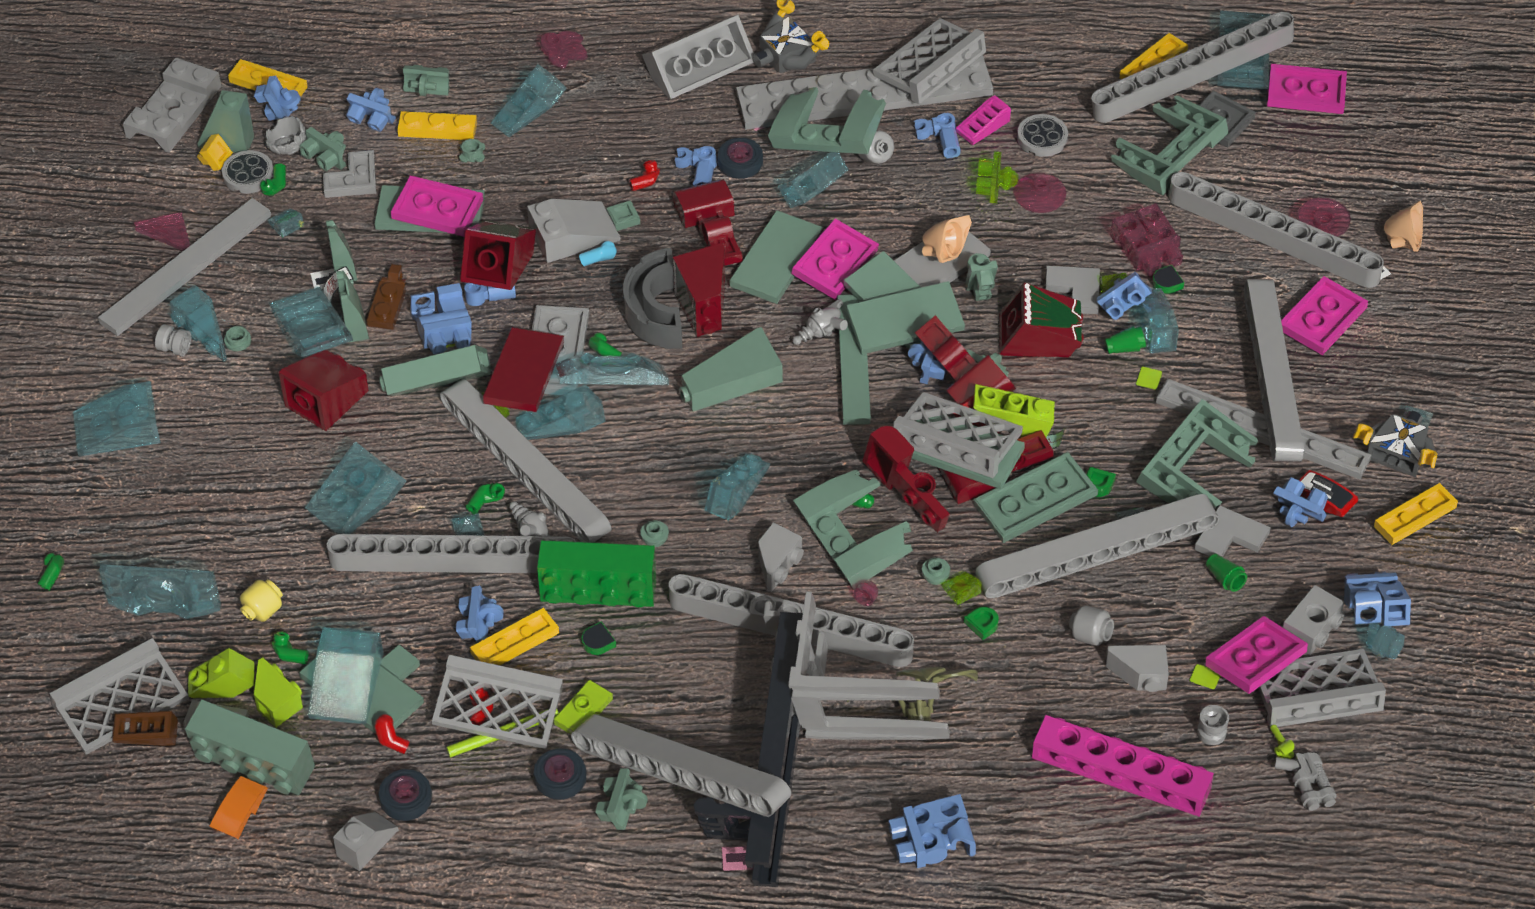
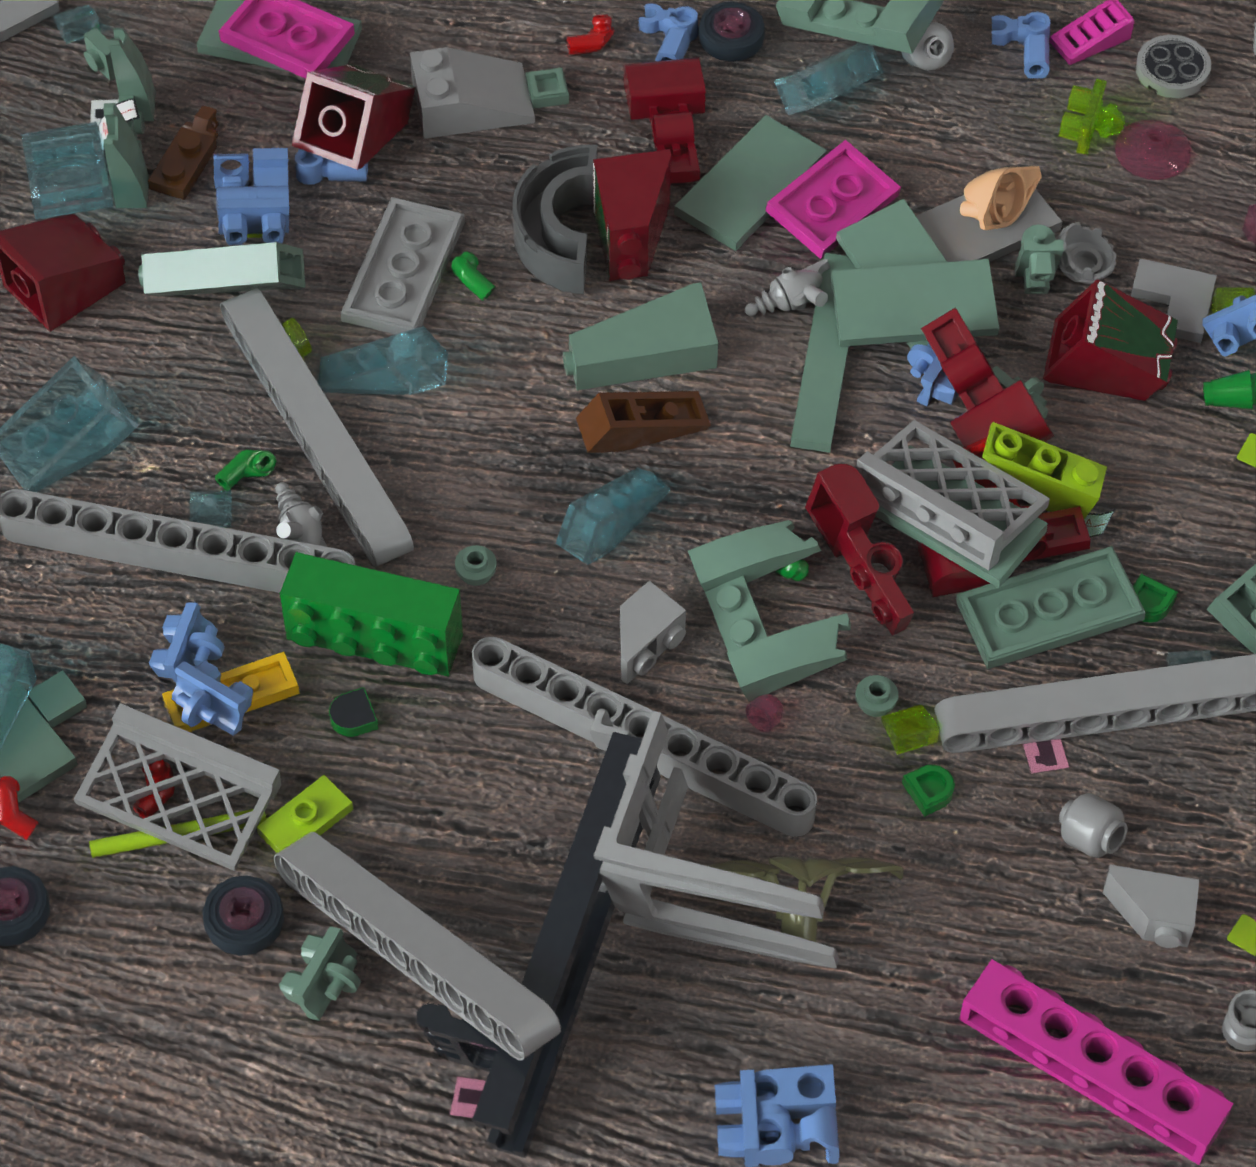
camera: 10 degrees right, 5 degrees up
(312, 240) = (98, 53): none -> sand green plate
(504, 643) = (209, 700): none -> medium blue hips
(523, 369) = (345, 289): dark red tile -> none
(605, 252) = (509, 136): medium azure arm -> none
(611, 370) = (469, 311): clear light blue slope -> none
(739, 422) = (639, 419): none -> reddish brown slope
(1012, 268) = (1086, 254): none -> light grey hair
(1052, 590) = (1045, 755): none -> clear pink sticker

